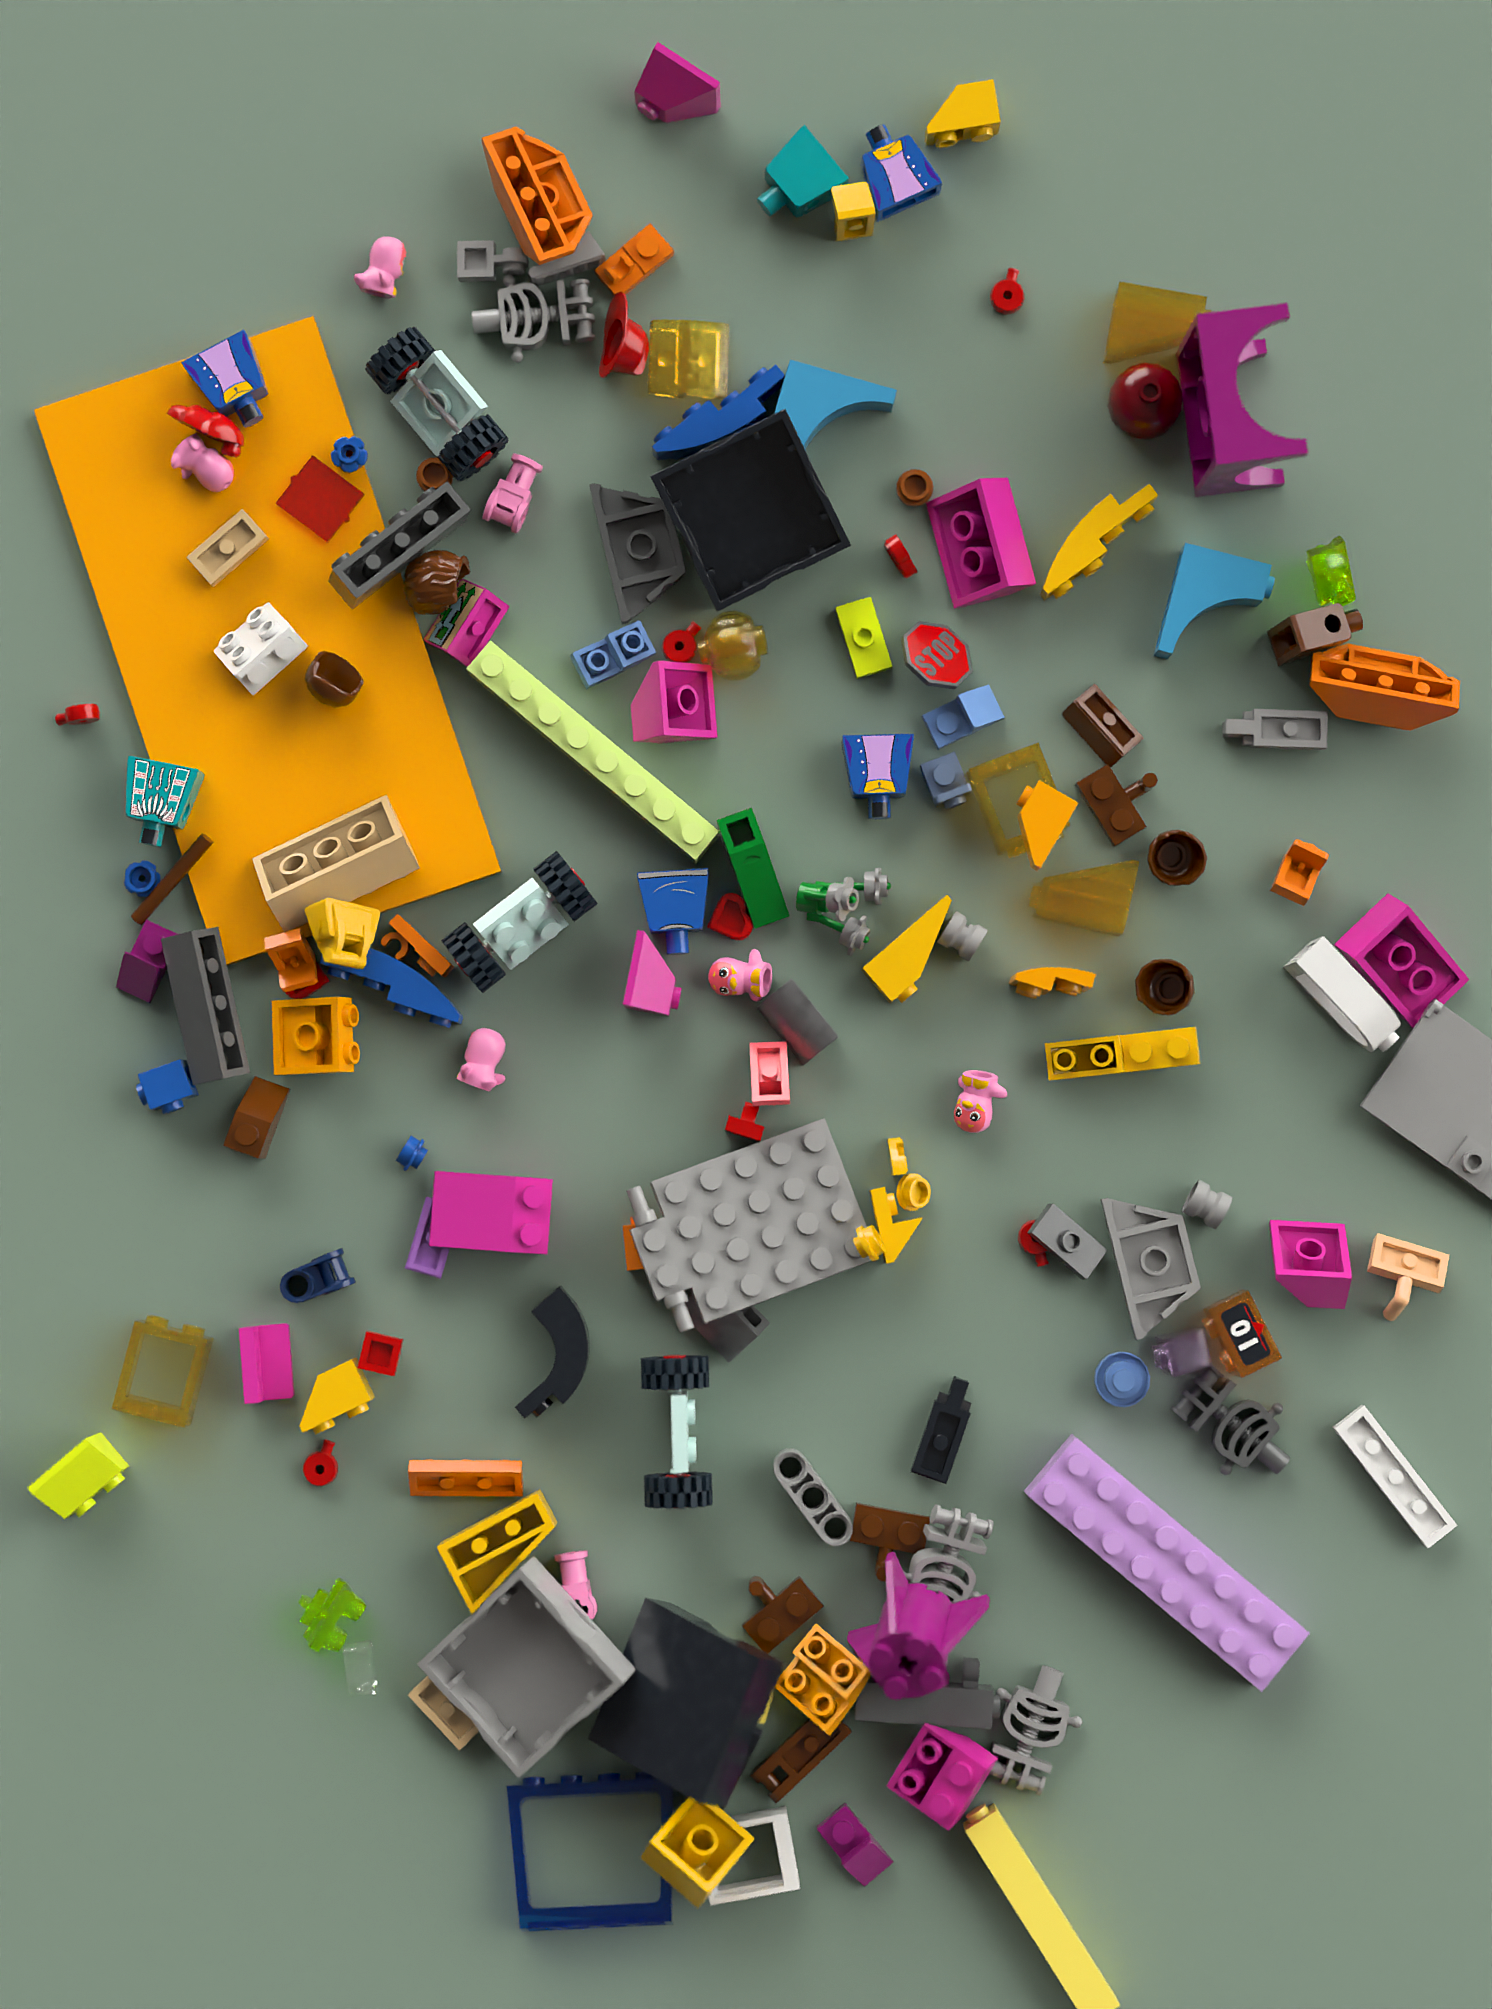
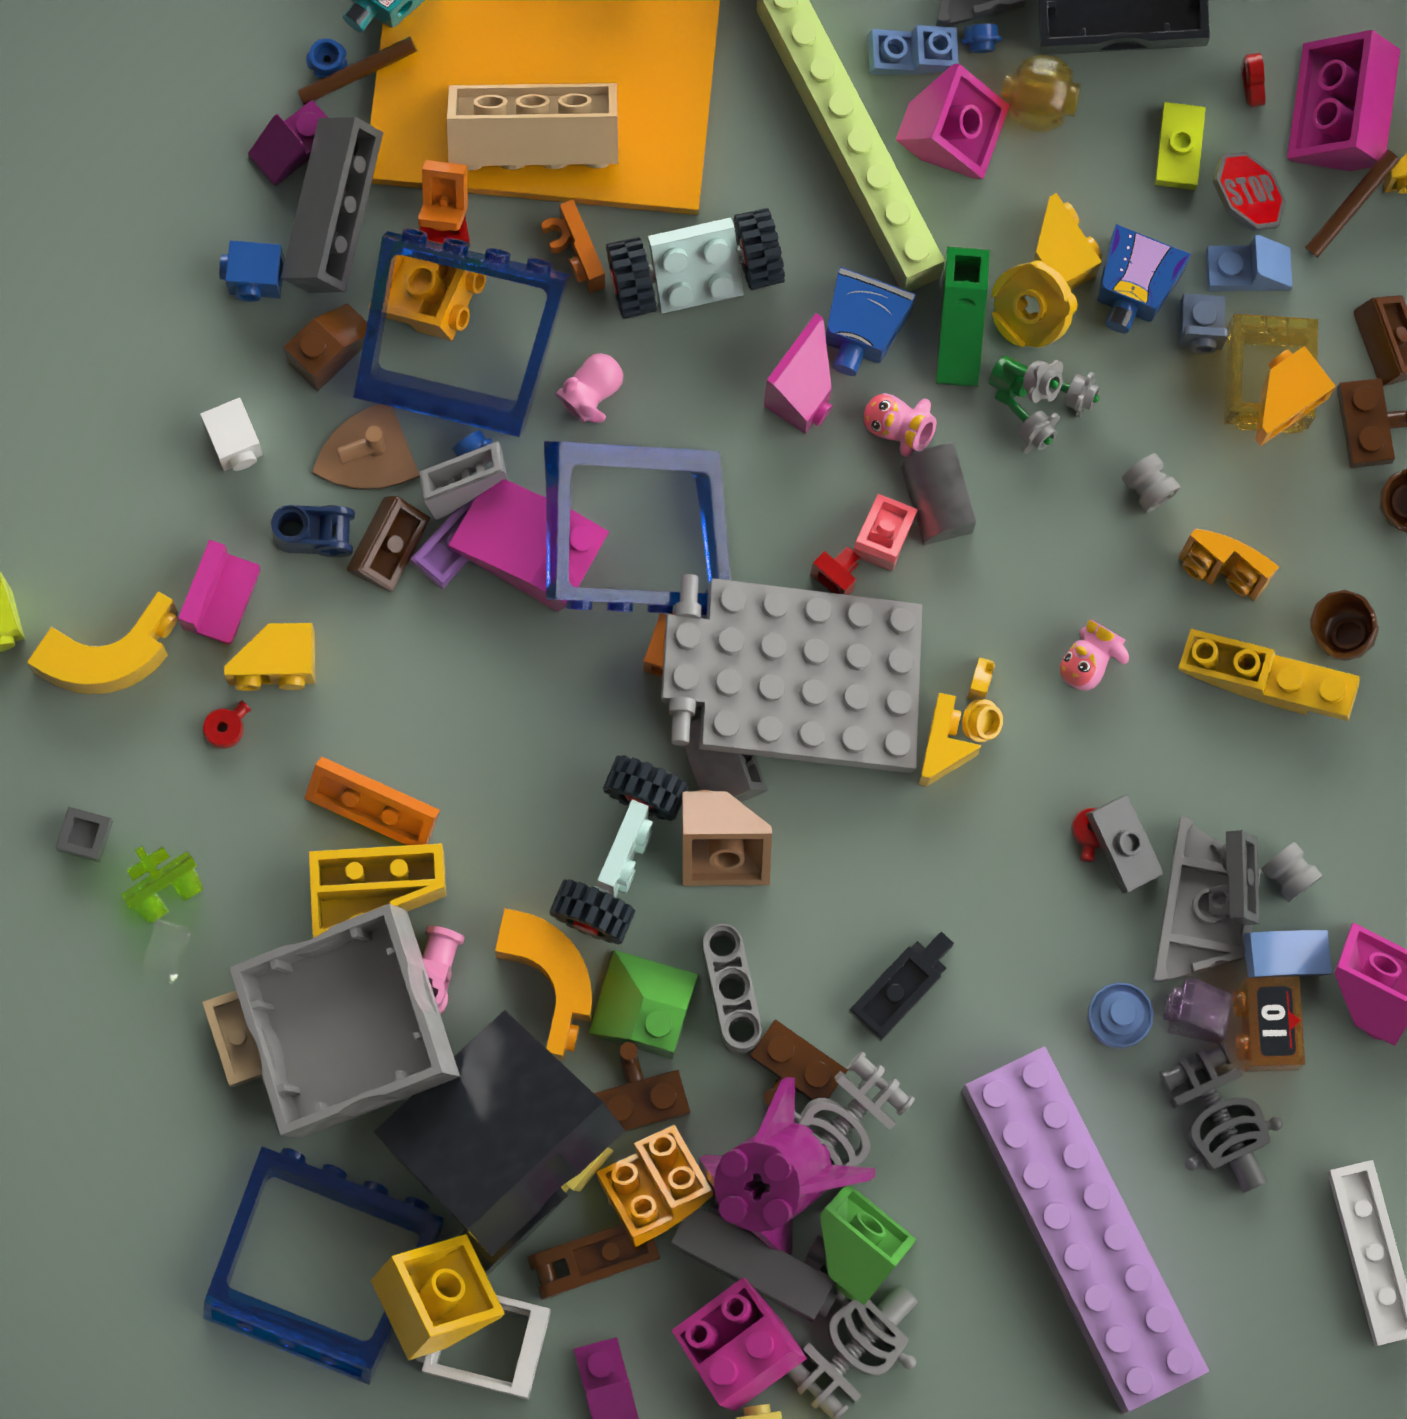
camera: 20 degrees right, 10 degrees down
(154, 1409) = (110, 605): clear yellow window -> none
(185, 1474) = (110, 666): none -> yellow arch
(216, 1231) = (232, 435): none -> white brick
(252, 1604) = (84, 834): none -> dark grey plate
(328, 1190) = (367, 452): none -> medium nougat shield
(343, 925) = (510, 185): yellow piece -> none
(366, 1124) = (440, 399): none -> clear blue windscreen
(380, 1259) = (388, 543): none -> reddish brown slope
(380, 1353) = (344, 633): red tile -> none
(394, 1193) = (451, 483): none -> light grey slope
(408, 988) = (528, 242): blue slope -> none
(521, 1120) = (559, 461): none -> clear blue windscreen
(572, 1348) = (543, 727): black arch -> none
(664, 619) = (981, 37): none -> blue plate
(664, 1533) = (546, 948): none -> light orange arch
(683, 637) = (993, 66): red piece -> none
(730, 918) = (915, 362): red tile -> none
(749, 1538) = (643, 1004): none -> bright green slope
(752, 1385) = (723, 841): none -> medium nougat slope
(807, 774) = (1065, 246): none -> yellow slope
(810, 816) = (1054, 300): none -> yellow plate
(869, 1243) = (913, 742): yellow plate -> none
(904, 959) = (1077, 479): yellow slope -> none
(914, 487) = (1298, 22): dark orange plate -> none
(1003, 1653) = (861, 1244): none -> bright green slope
(1024, 627) = (1352, 203): none -> reddish brown bar
(1087, 898) = (1300, 501): clear yellow slope -> none
(1176, 1246) = (1241, 895): none -> dark grey hinge
(1231, 1273) = (1287, 953): none -> medium blue slope

